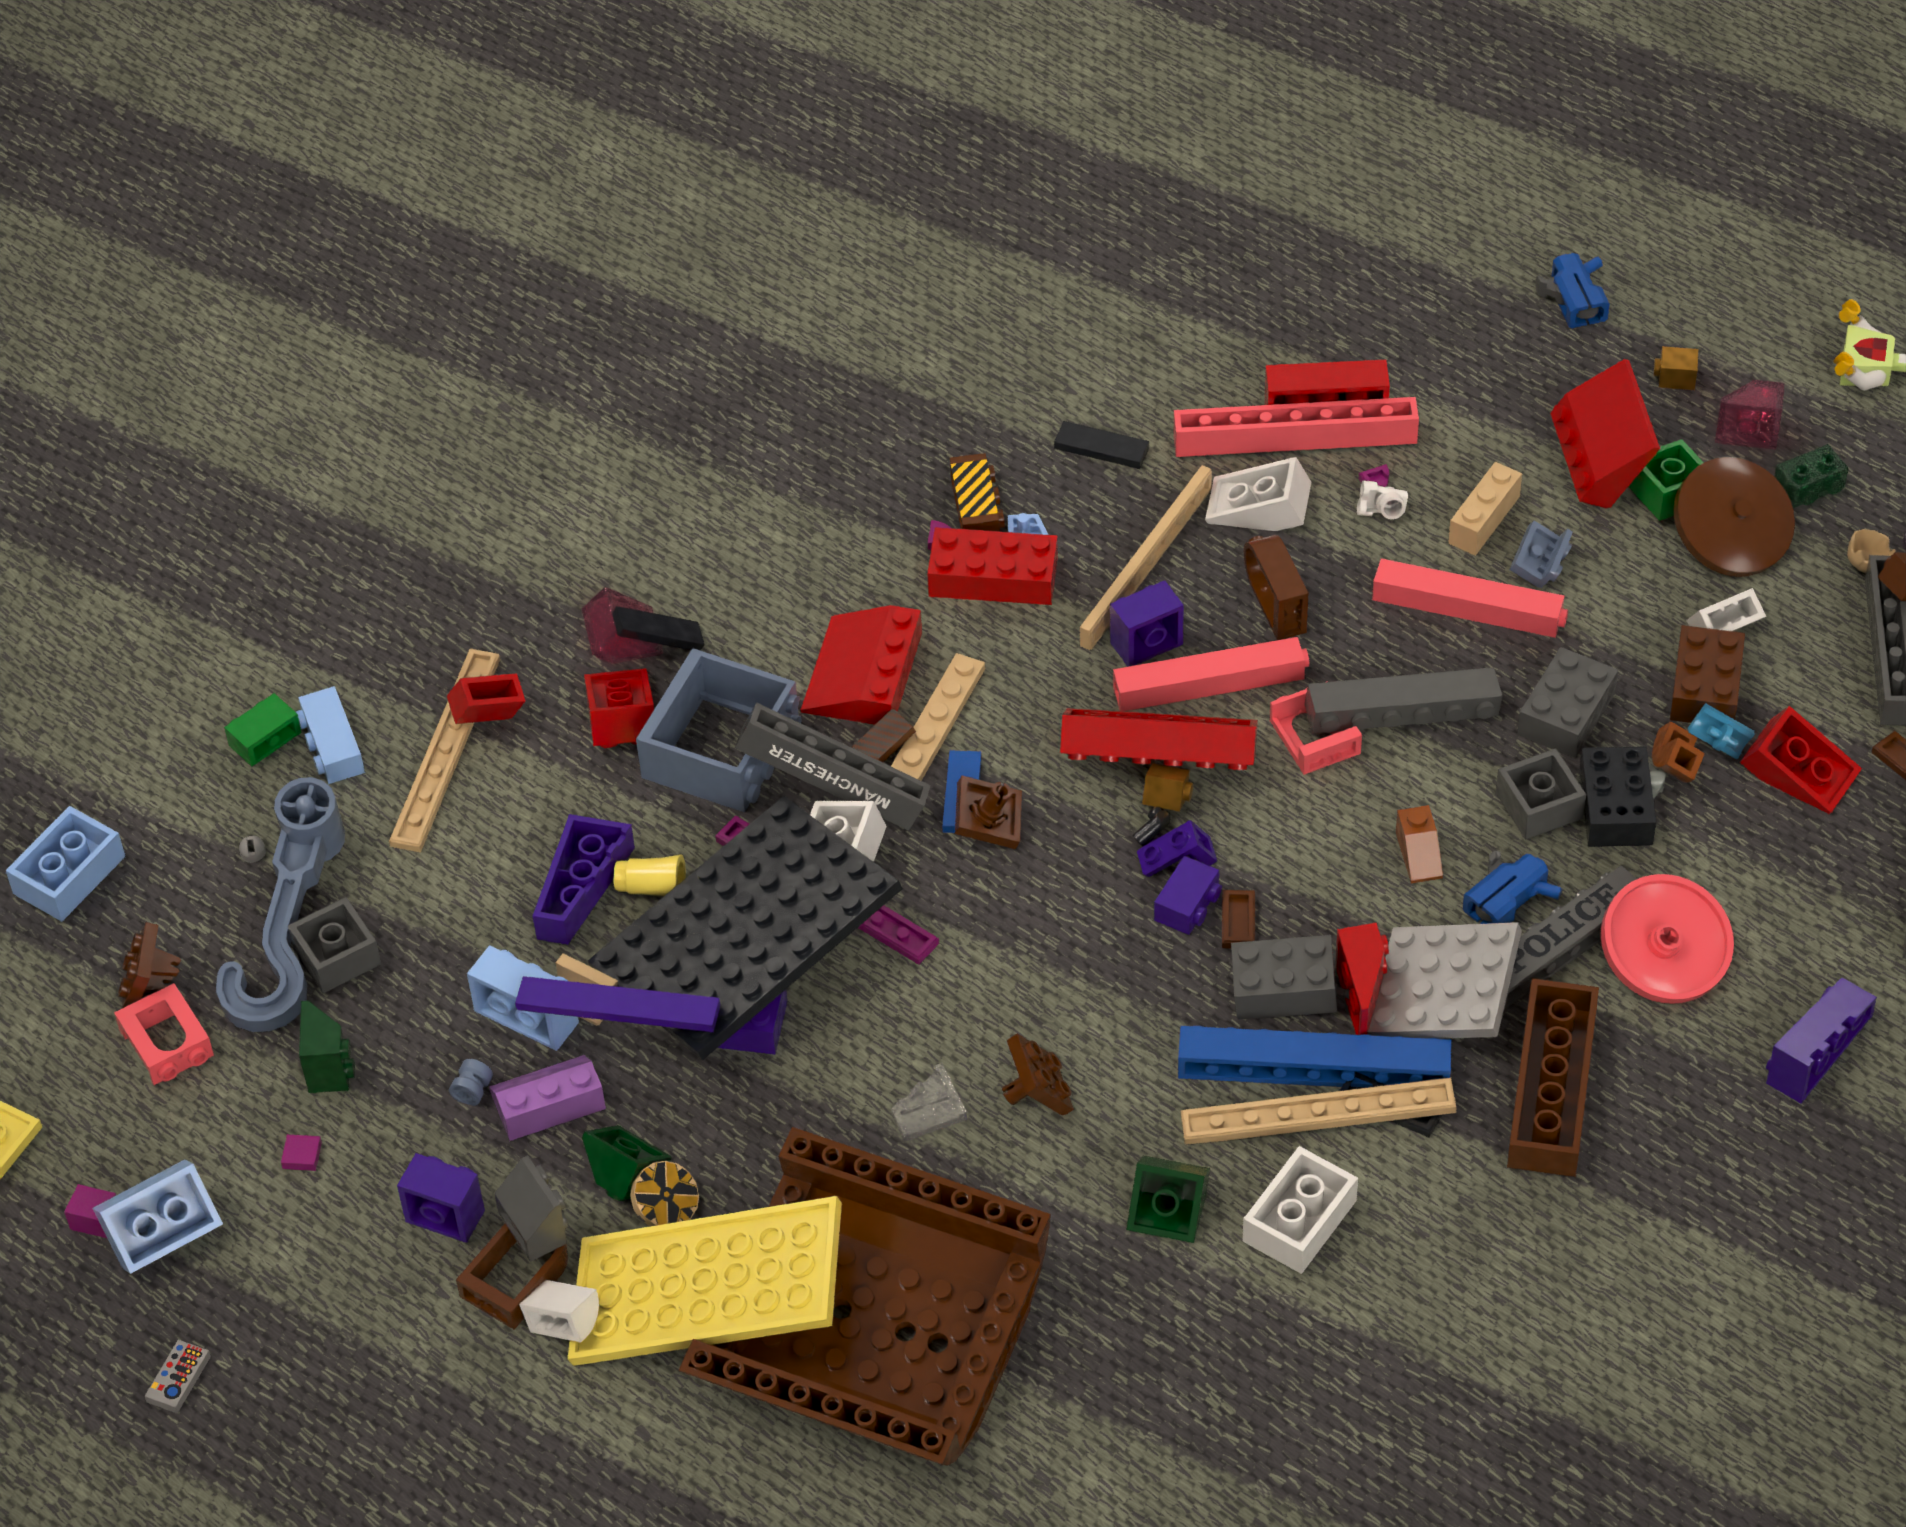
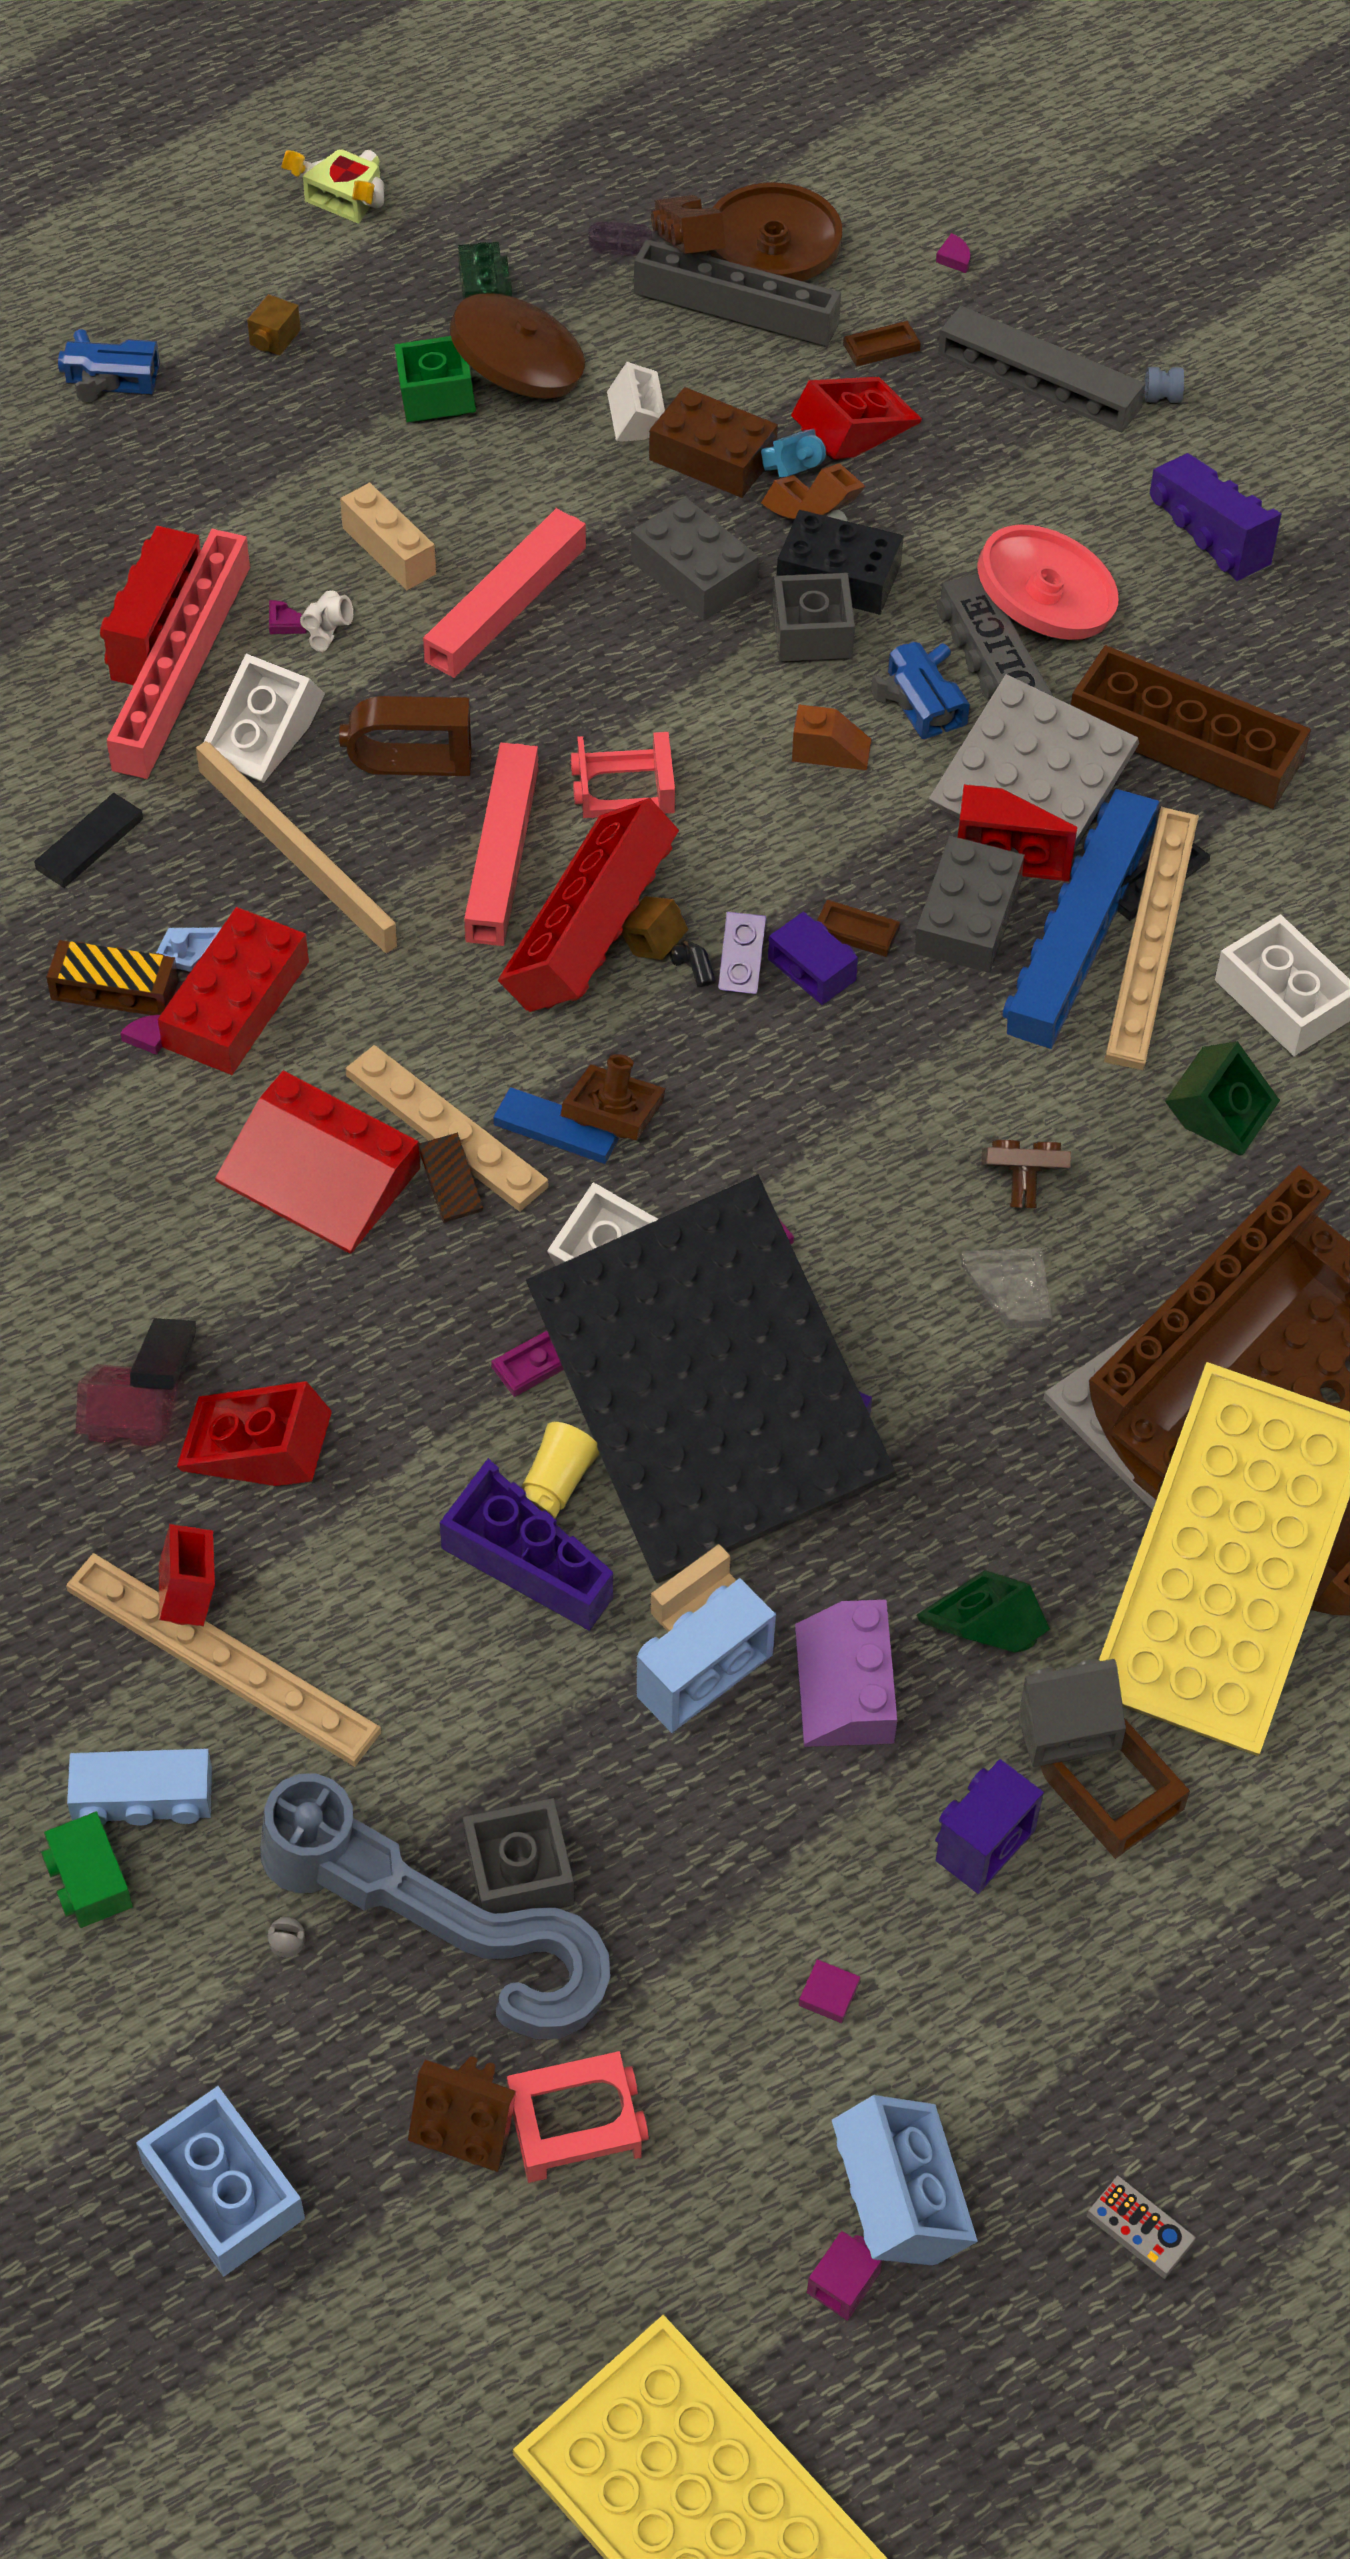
camera: 75 degrees left, 5 degrees up
(324, 1052) = (695, 1911): dark green slope -> none
(470, 1083) = (801, 1758): sand blue wheel -> none
(561, 1310) = (1199, 1734): white brick -> none
(618, 1004) = (800, 1532): dark purple tile -> none
(664, 1194) = (1059, 1583): tile -> none
(724, 684) = (322, 1278): sand blue window -> none
(831, 765) = (505, 1217): dark grey brick -> none
(1146, 623) = (410, 868): dark purple brick -> none
(1403, 700) = (629, 688): dark grey brick -> none
(1541, 554) = (477, 512): sand blue bracket -> none
(1605, 434) = (357, 393): red slope -> none
(1751, 415) = (389, 281): clear pink slope -> none
(1867, 543) = (610, 274): tan hair -> none

